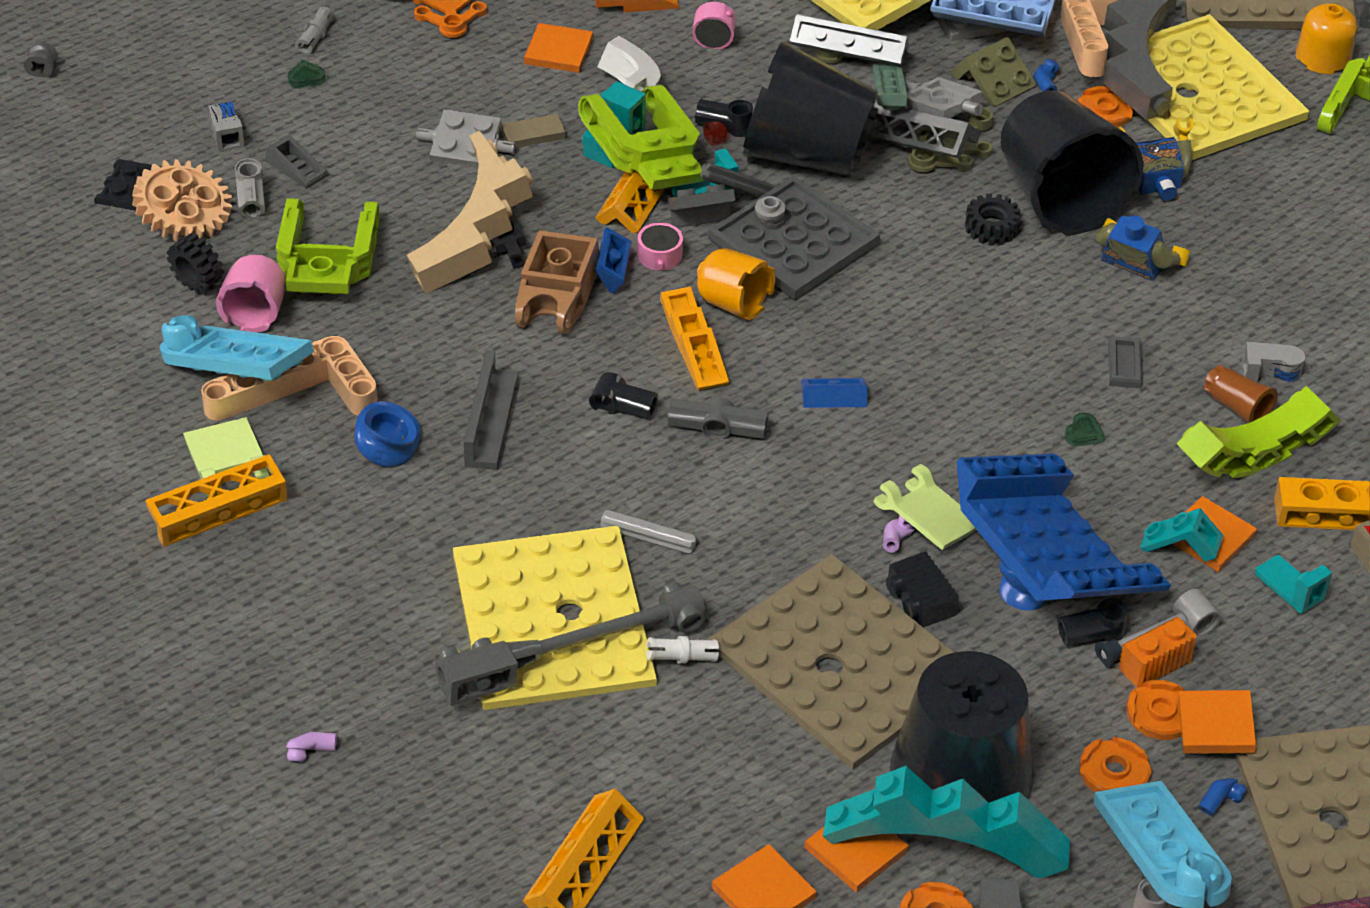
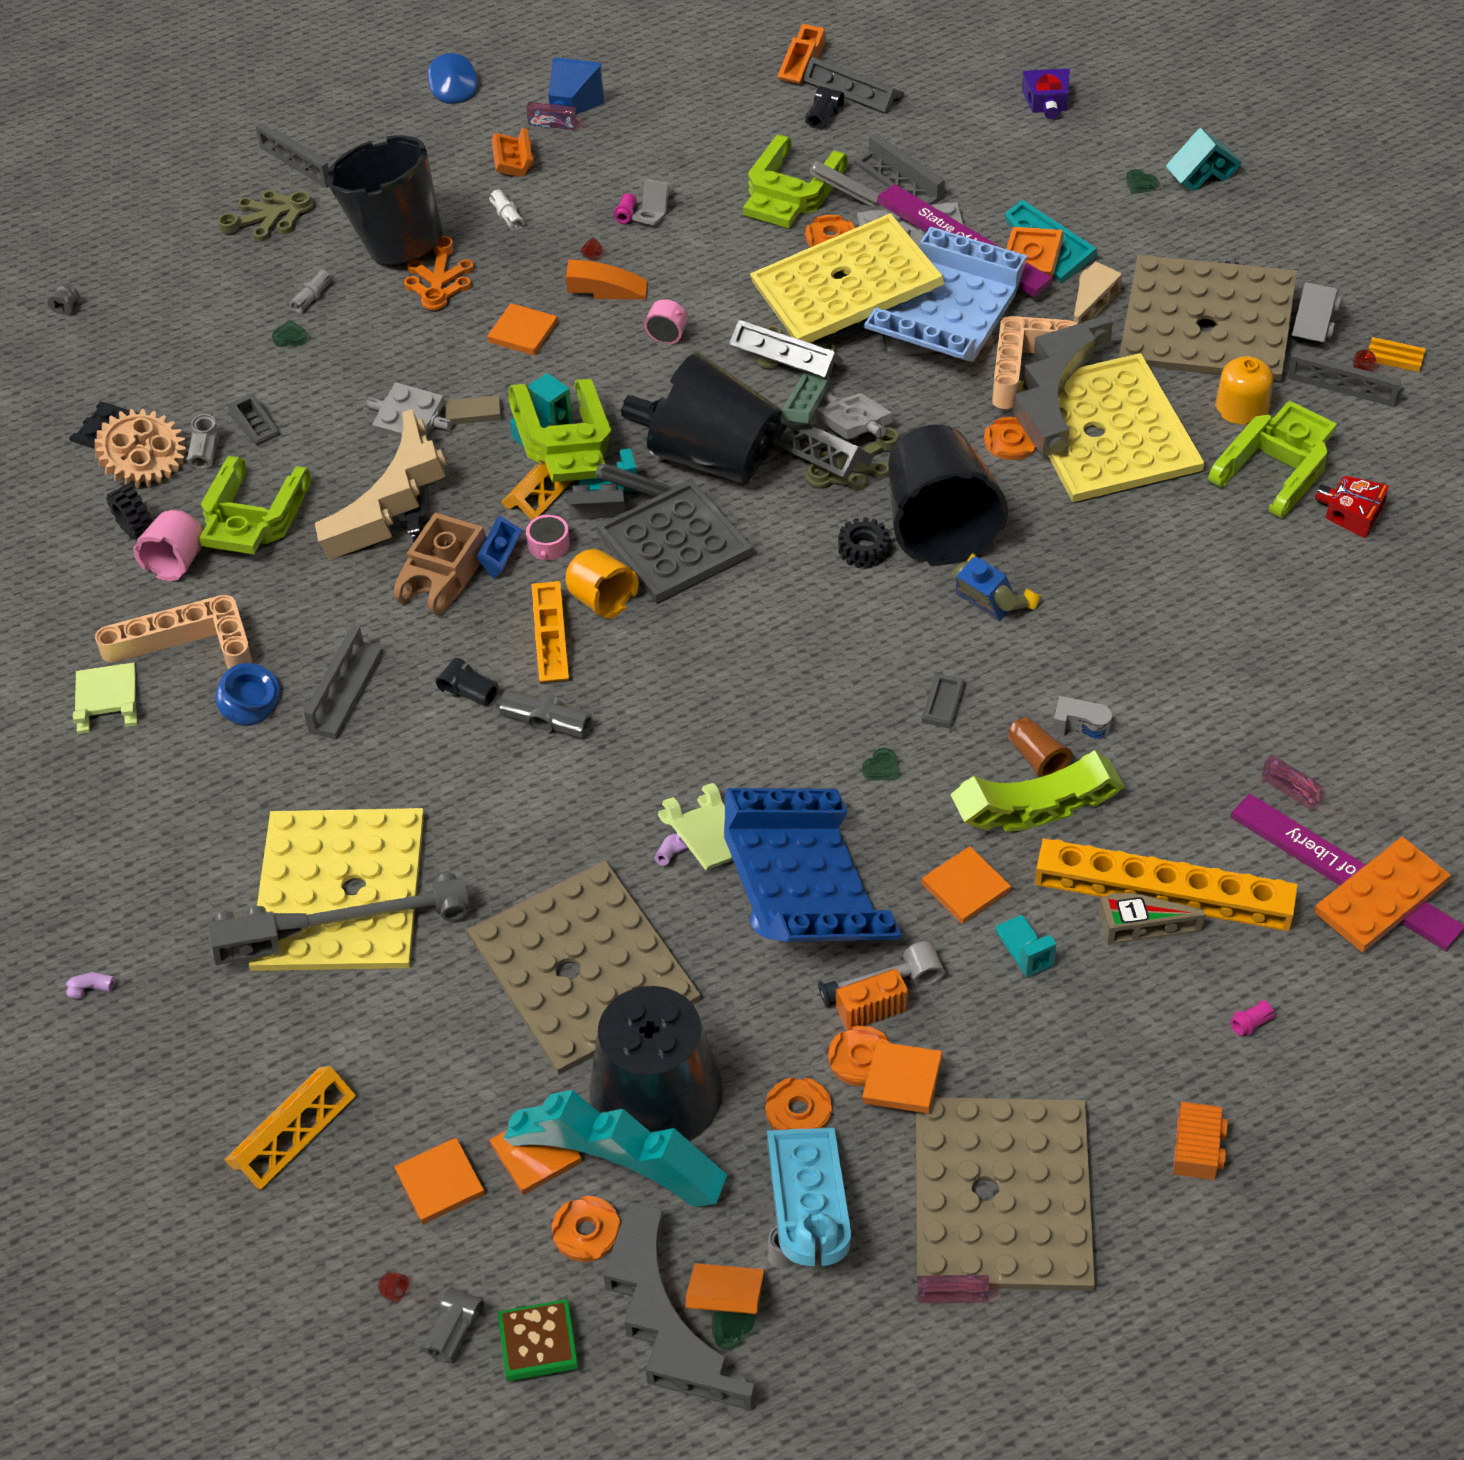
camera: 15 degrees right, 5 degrees up
(221, 505) = (80, 746): light orange fence -> none
(225, 122) = (202, 375): light grey leg -> none
(230, 349) = (131, 598): medium azure plate -> none
(629, 64) = (576, 354): white arch -> none
(650, 531) = (450, 817): light grey axle -> none
(682, 649) = (439, 937): white pin -> none
(716, 131) = (636, 428): clear red hinge -> none
(769, 209) = (655, 512): light grey plate -> none
(834, 392) = (661, 699): blue slope -> none
(922, 589) = (675, 907): black brick -> none
(997, 72) = (917, 393): olive bracket -> none
(1045, 75) = (963, 400): blue arm -> none
(1103, 623) = (824, 962): black piece -> none
(1166, 162) = (1037, 502): torso -> none
(1193, 526) = (941, 880): teal bracket -> none
(1221, 791) = (886, 1146): blue arm -> none

